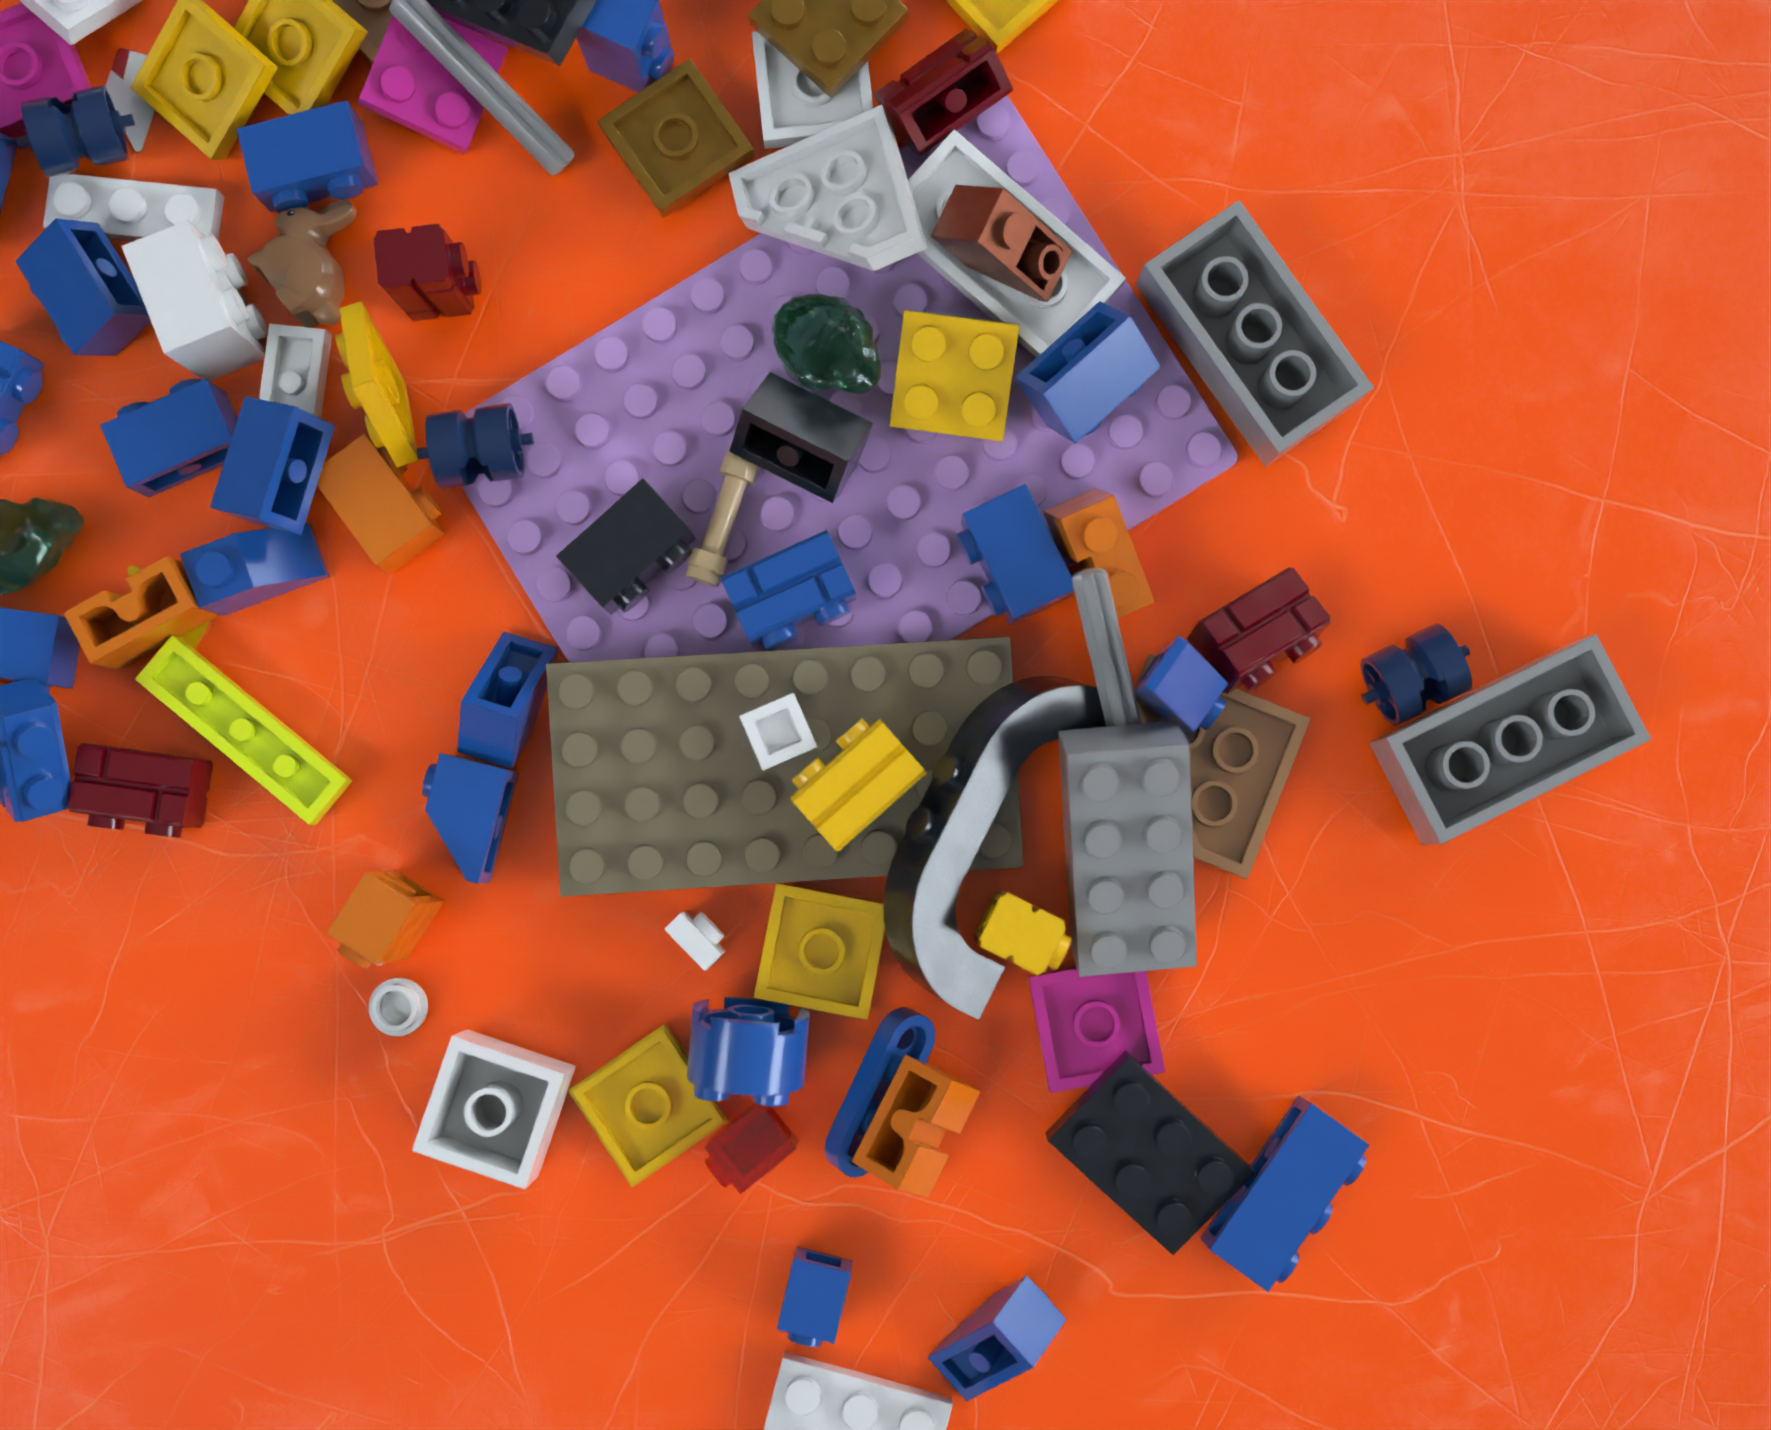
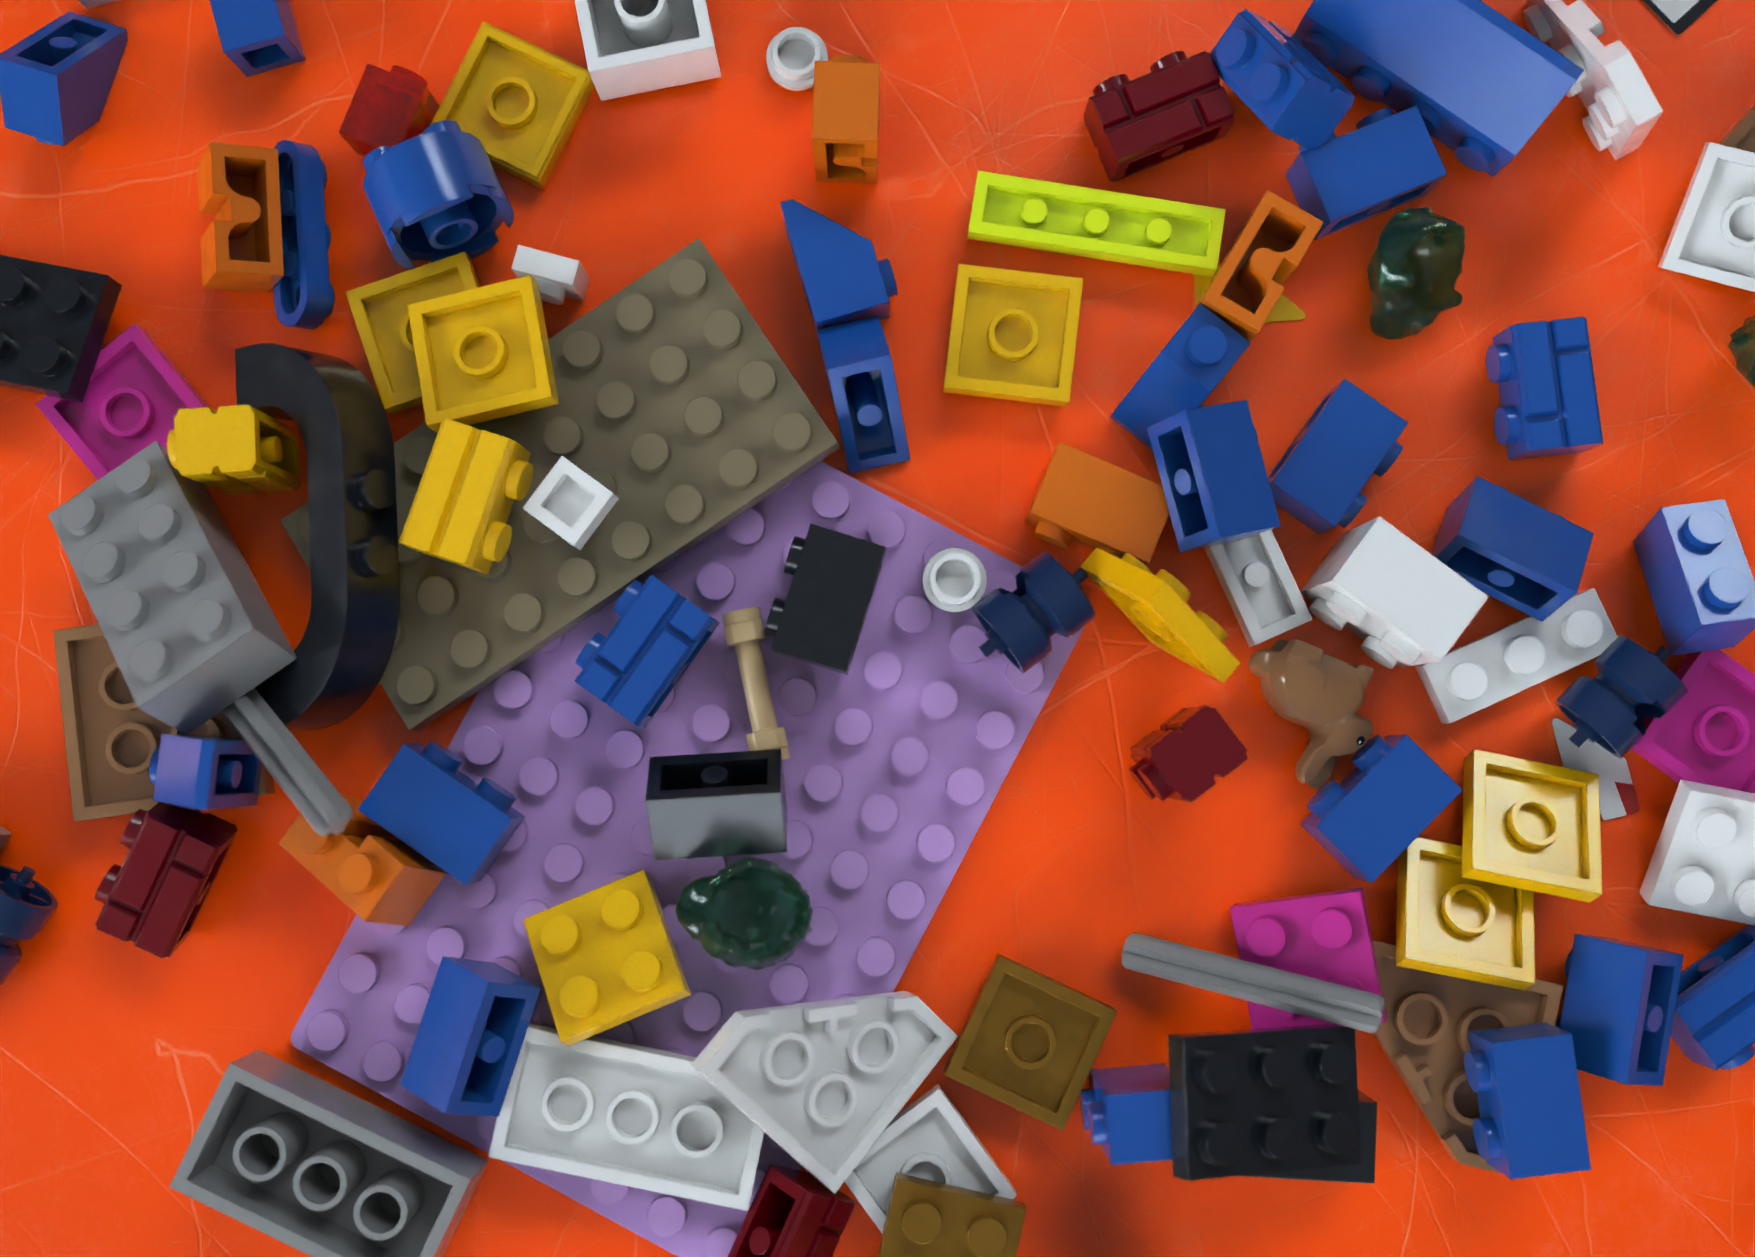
camera: 145 degrees right, 0 degrees up
(362, 679) = (1013, 335): none -> yellow plate
(523, 510) = (954, 580): none -> white plate
(781, 895) = (483, 353): none -> yellow plate
(1001, 240) = (626, 1119): copper slope -> none

